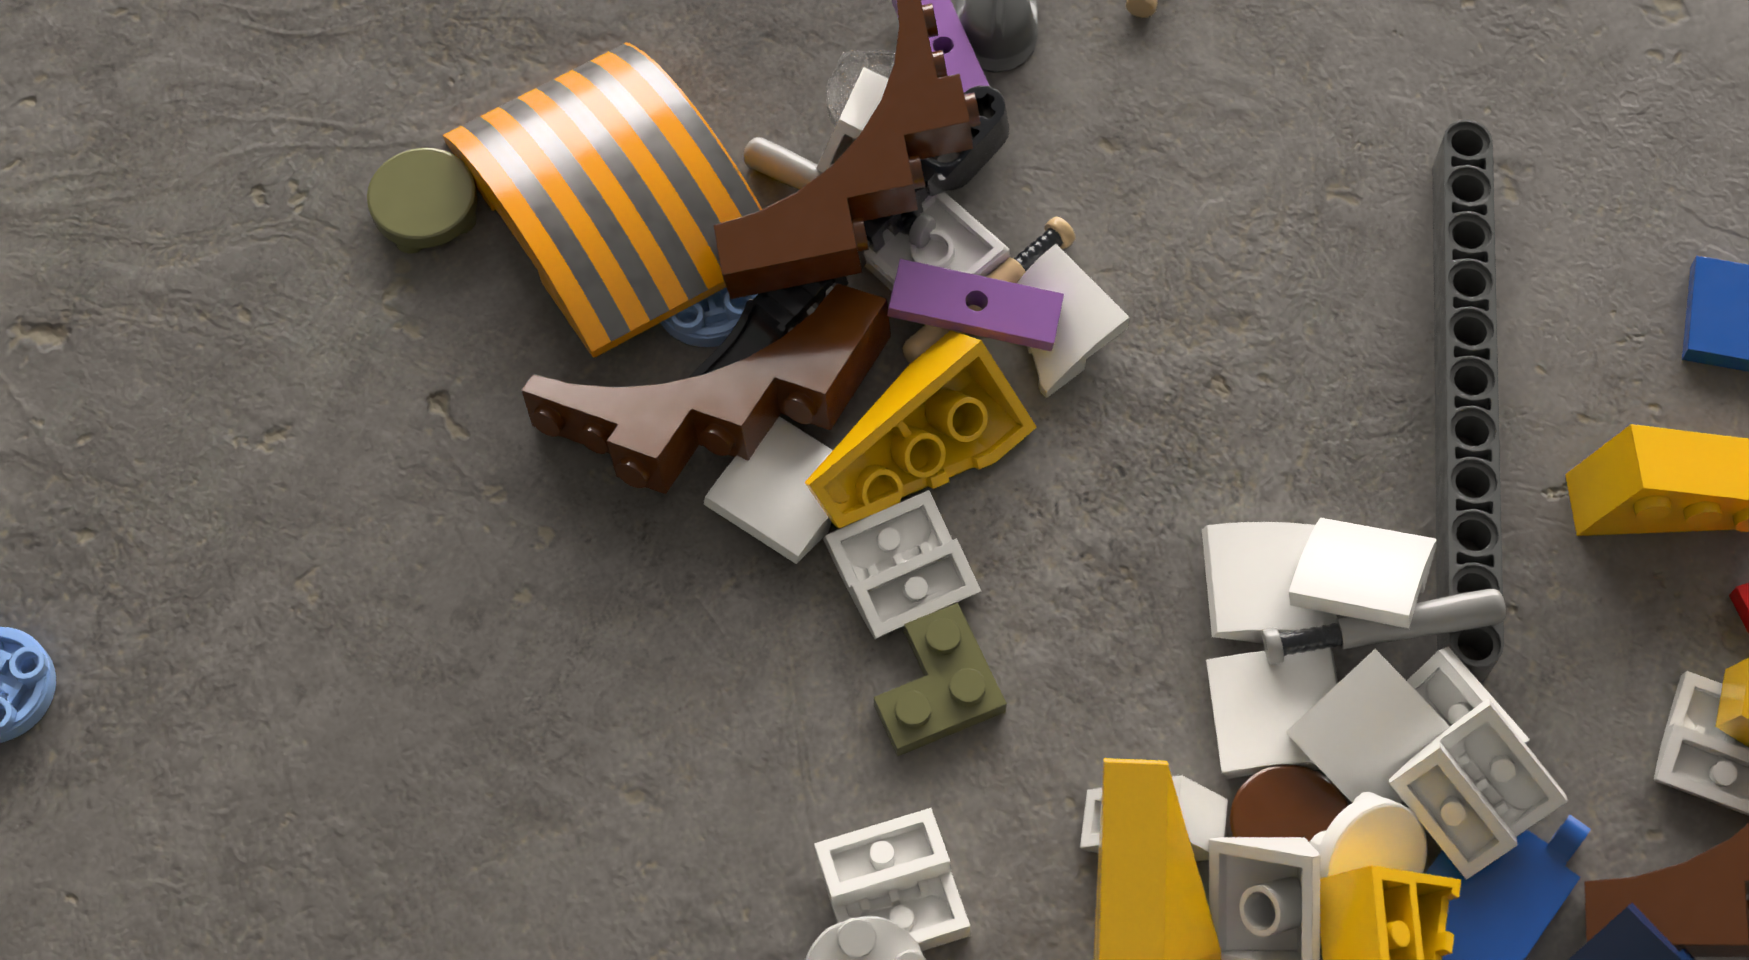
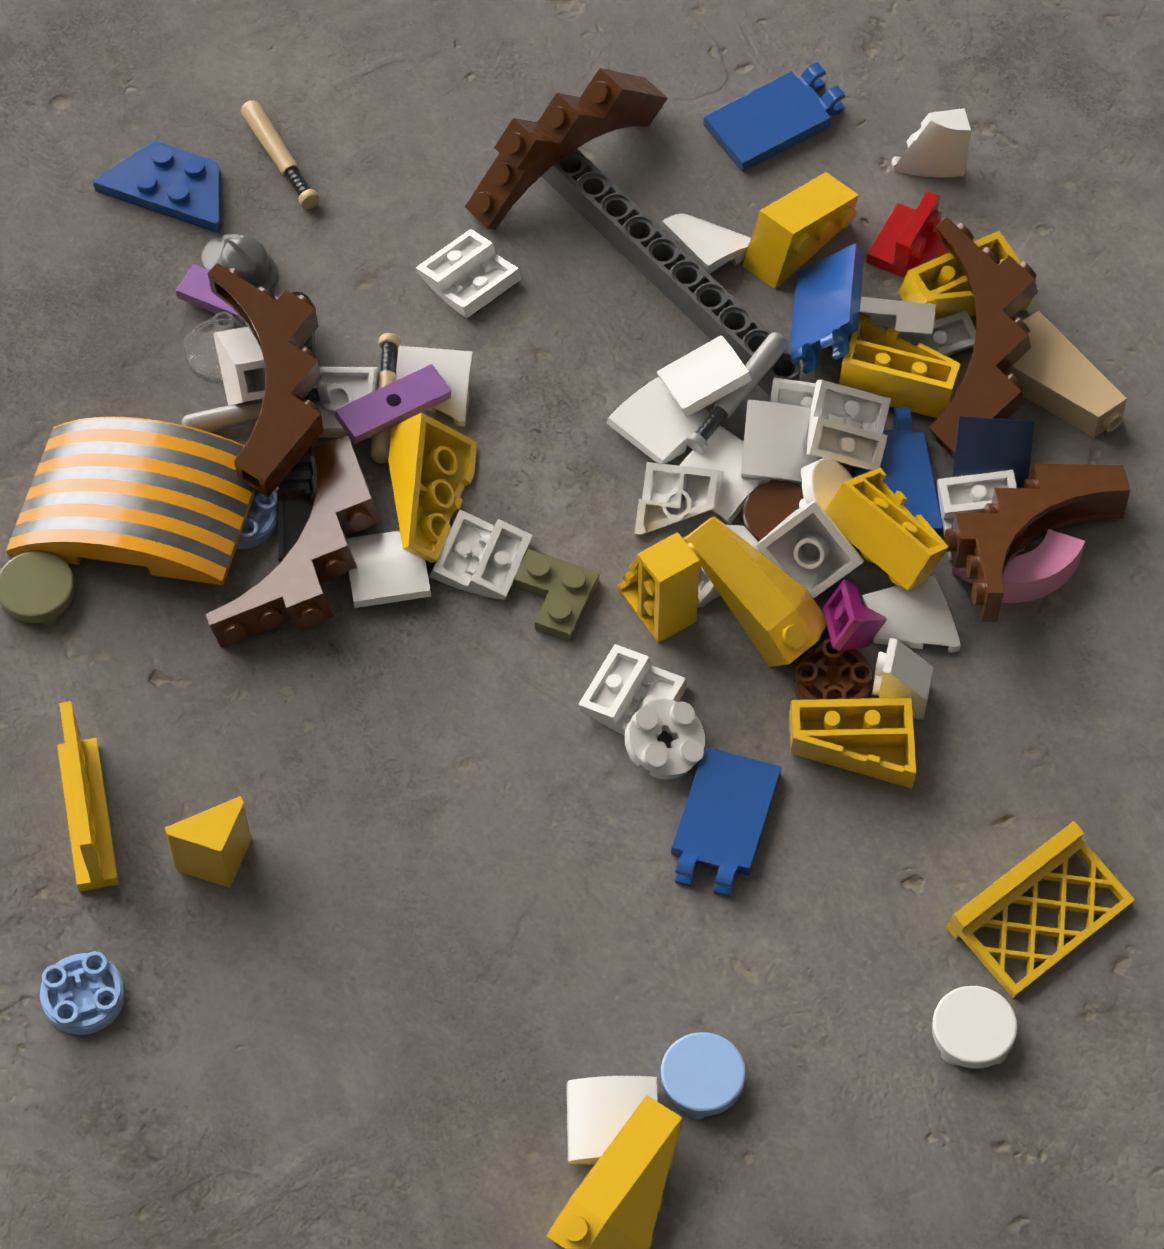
camera: 45 degrees left, 5 degrees down
(199, 498) = (86, 806): none -> yellow fence
(266, 643) = (211, 842): none -> yellow slope
(1043, 798) = (664, 586): none -> yellow wedge
(1190, 688) = (675, 494): none -> white slope
(1230, 225) = (468, 273): none -> white slope
(1504, 134) = (531, 148): none -> reddish brown arch
(1544, 407) = (706, 242): none -> white slope
(1605, 614) = (826, 306): none -> blue tile
(1617, 770) = (899, 370): none -> yellow wedge
(1692, 712) = (900, 314): none -> white slope

